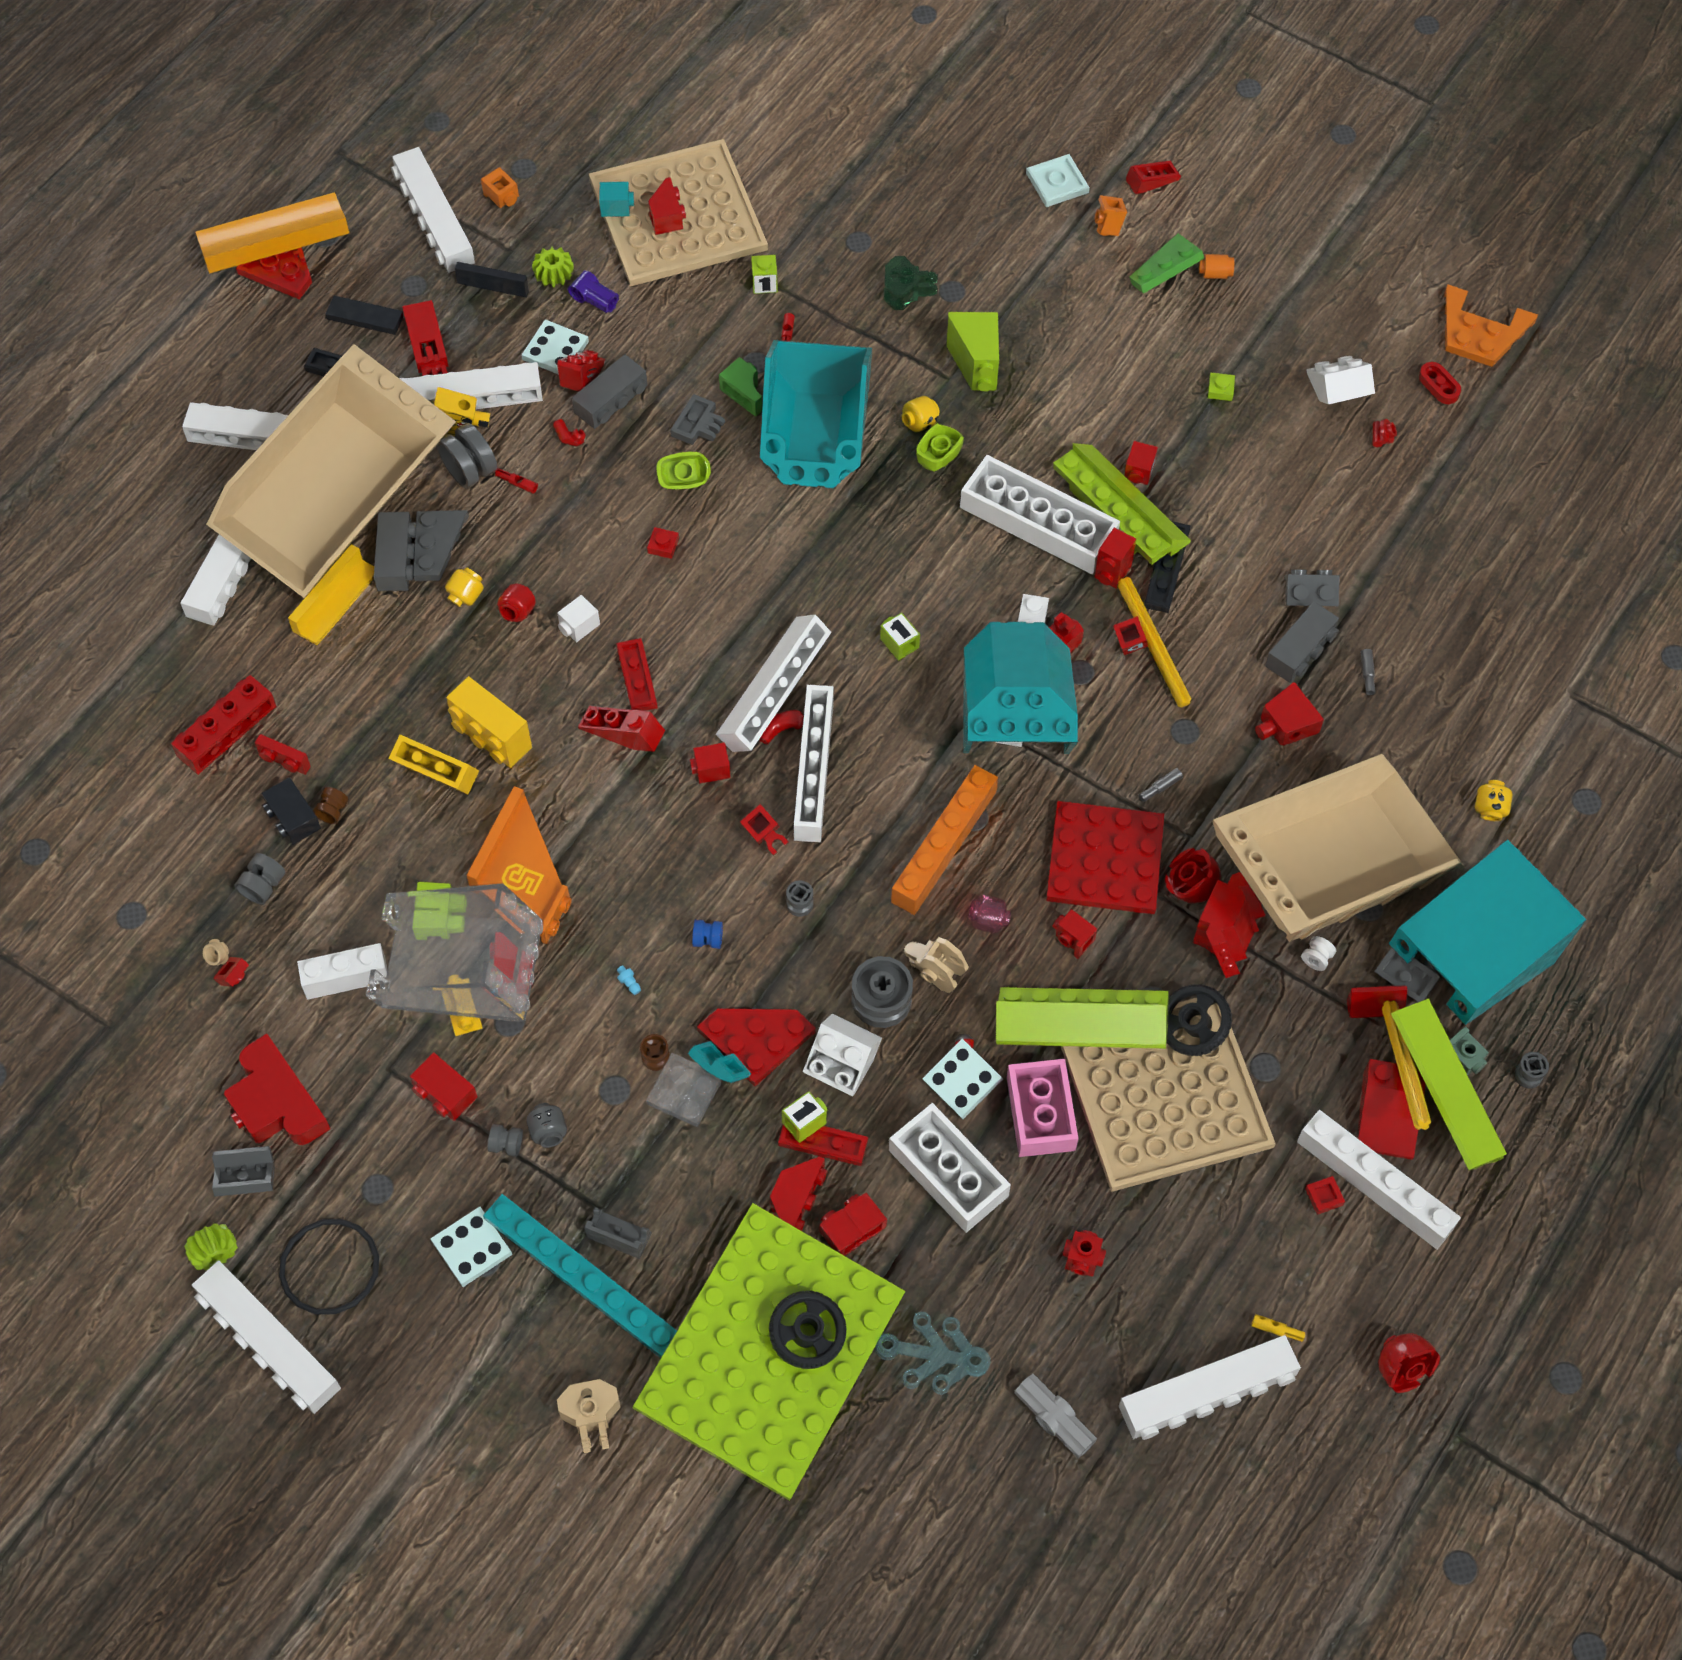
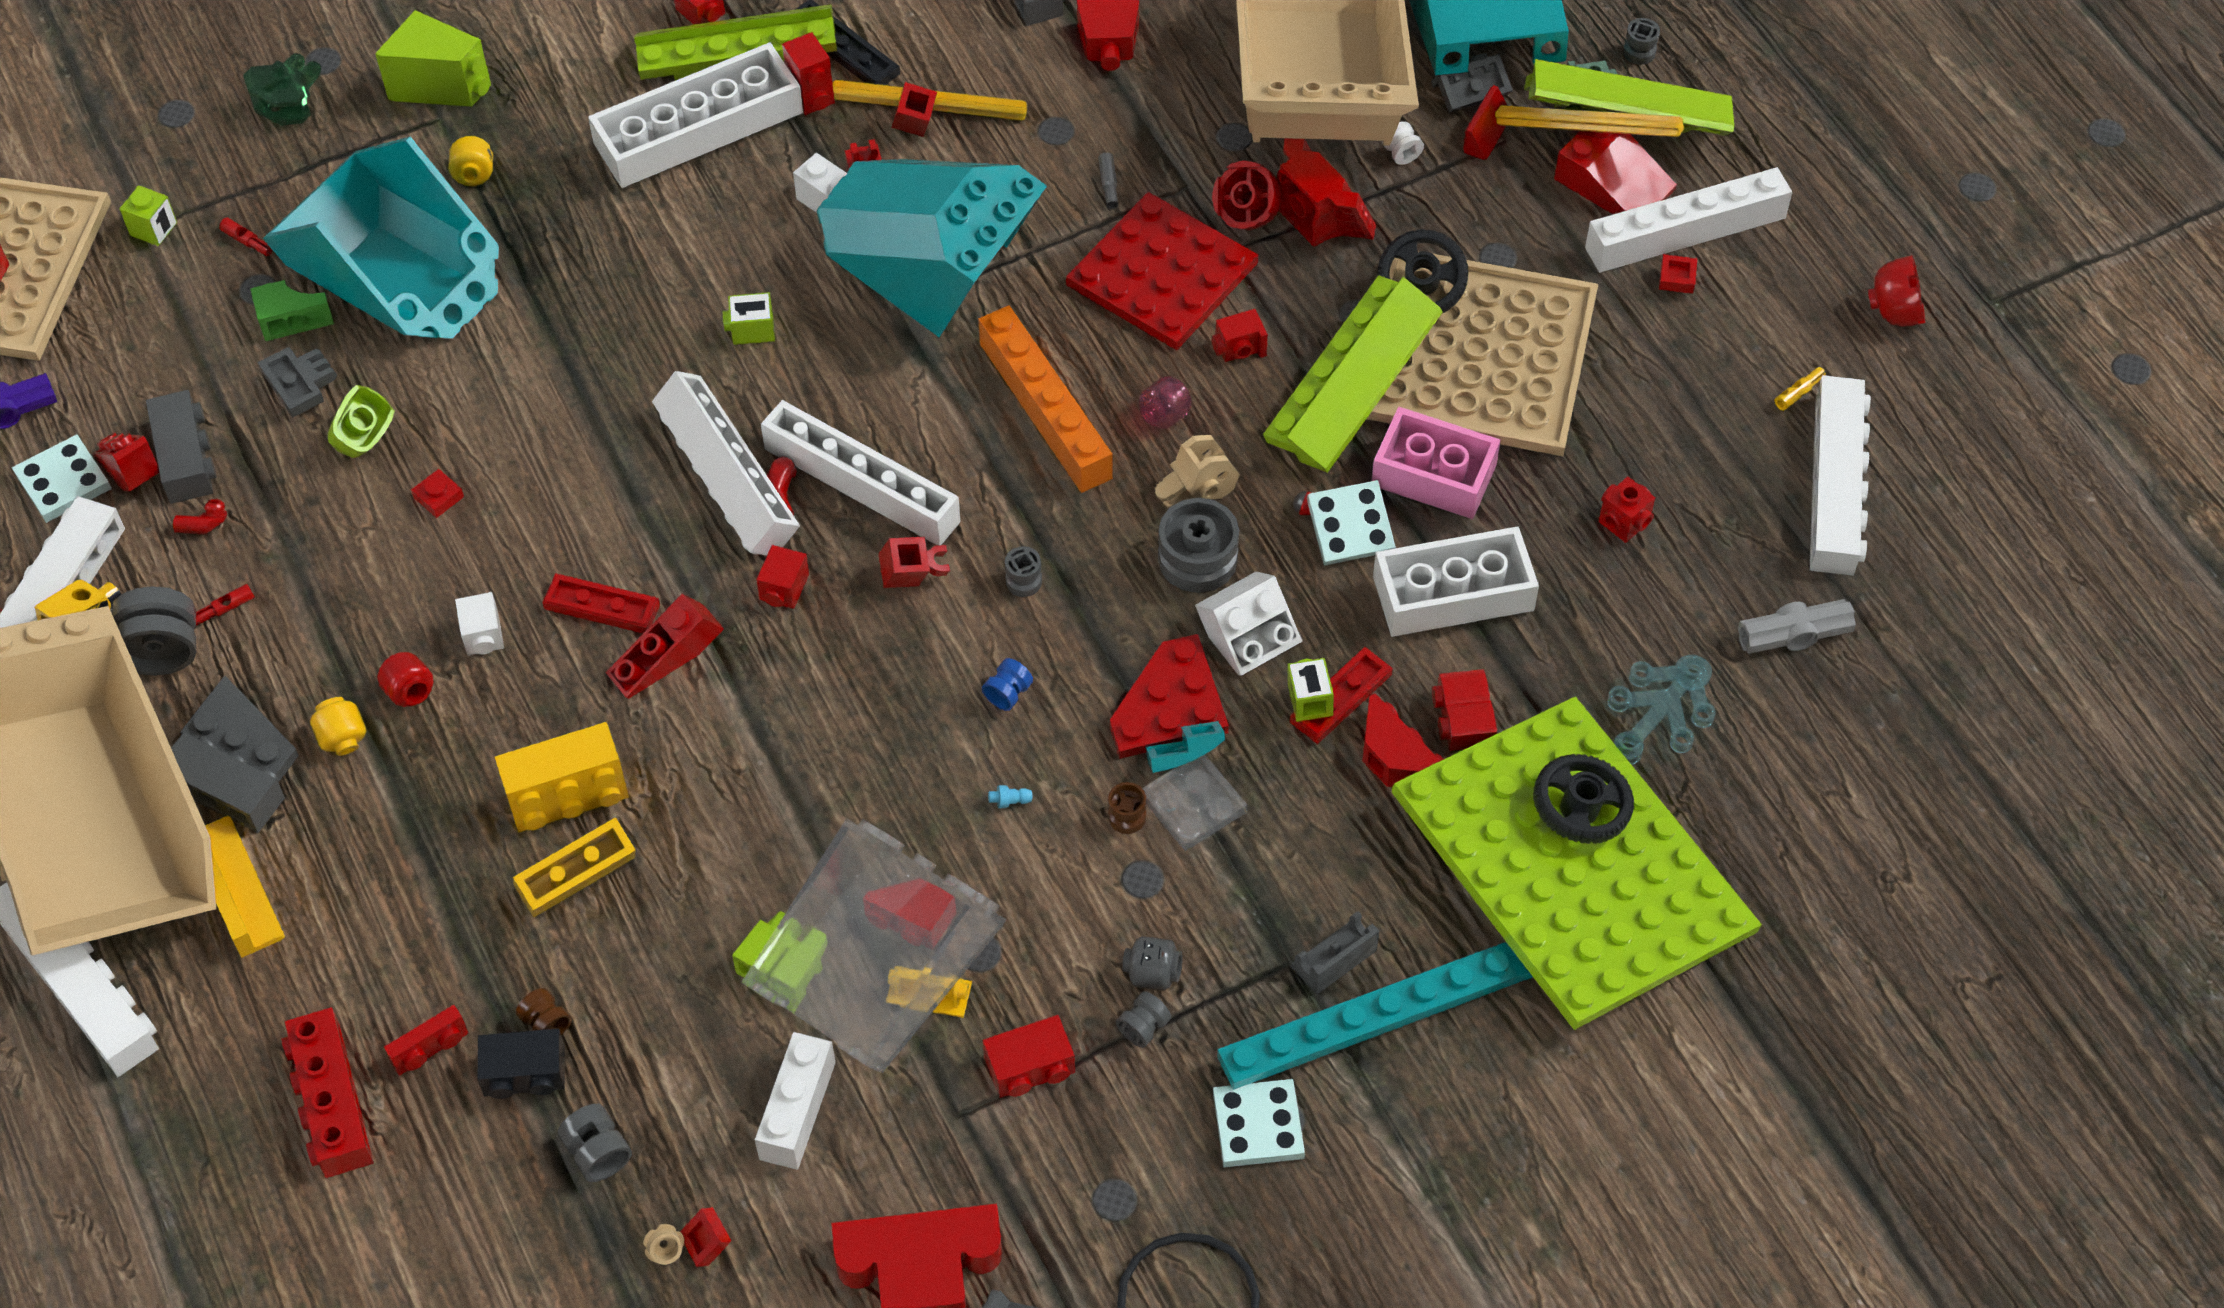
camera: 60 degrees left, 5 degrees down
(519, 859) = (767, 841): orange piece -> none
(589, 1413) = (1547, 1076): tan hinge -> none
(939, 447) = (534, 162): lime piece -> none

